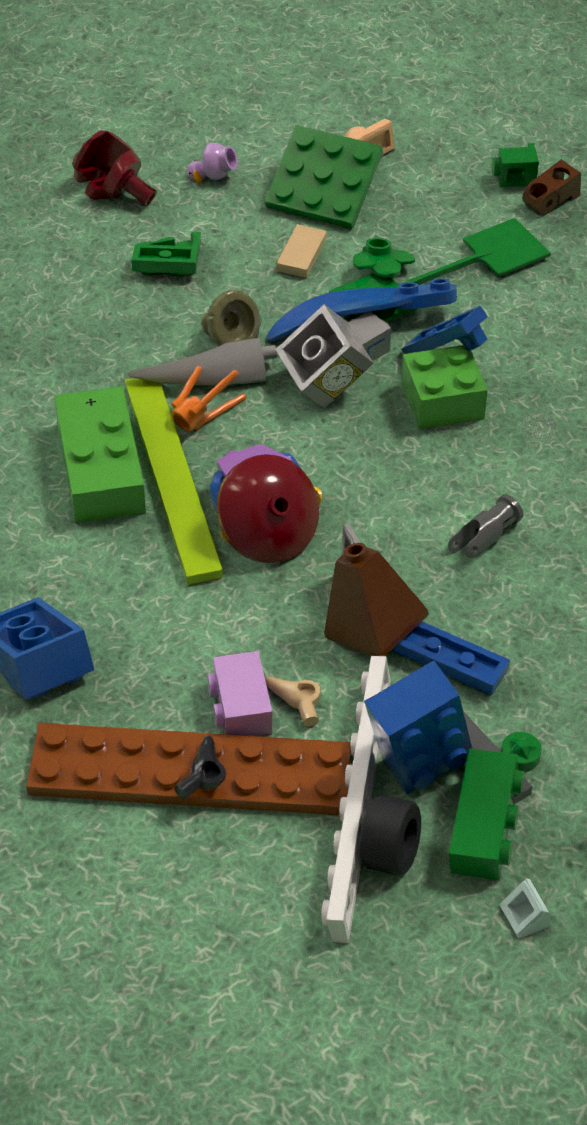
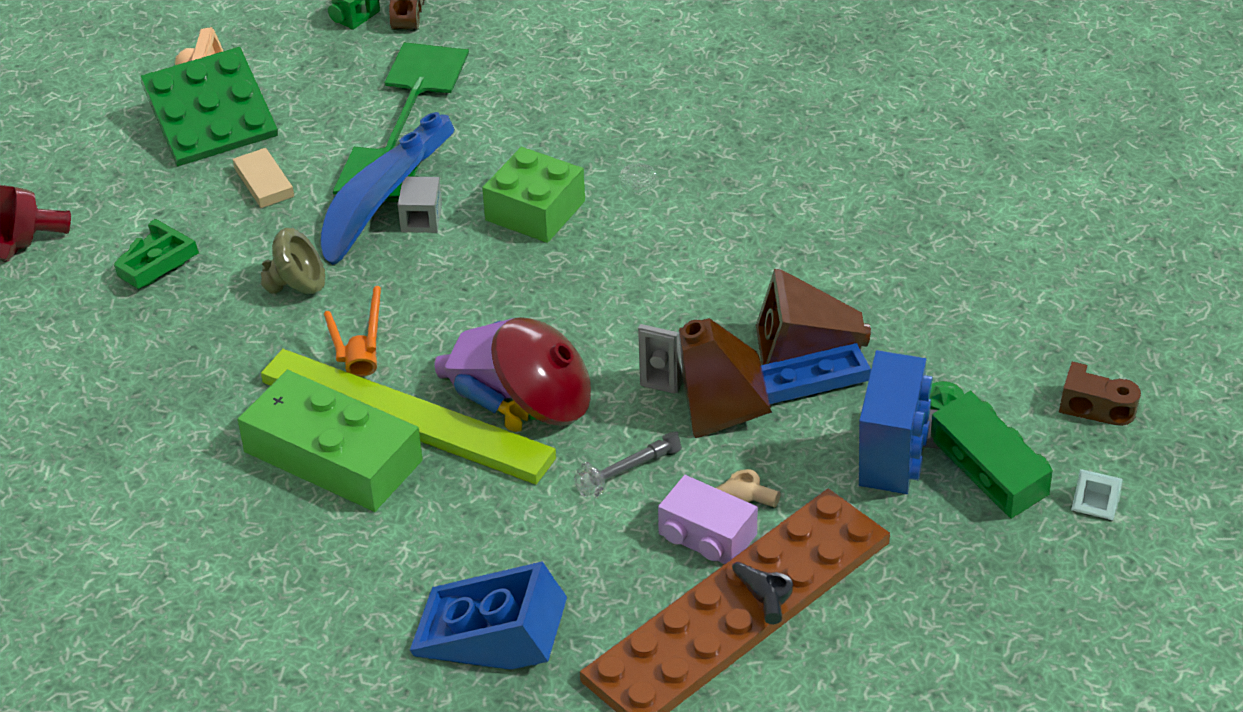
camera: 45 degrees left, 5 degrees down
(214, 608) = (591, 480): none -> piece
(215, 163) = (93, 157): lavender animal -> none
(216, 364) = (342, 293): light grey piece -> none
(324, 356) = (420, 231): light grey brick -> none
(360, 781) = (901, 525): white plate -> none
(382, 258) = (336, 139): green plate -> none
(390, 835) = (955, 519): black tyre -> none
(462, 327) = (510, 131): blue hinge -> none
(486, 527) = (706, 266): dark grey piece -> none
(489, 616) = (804, 321): none -> slope

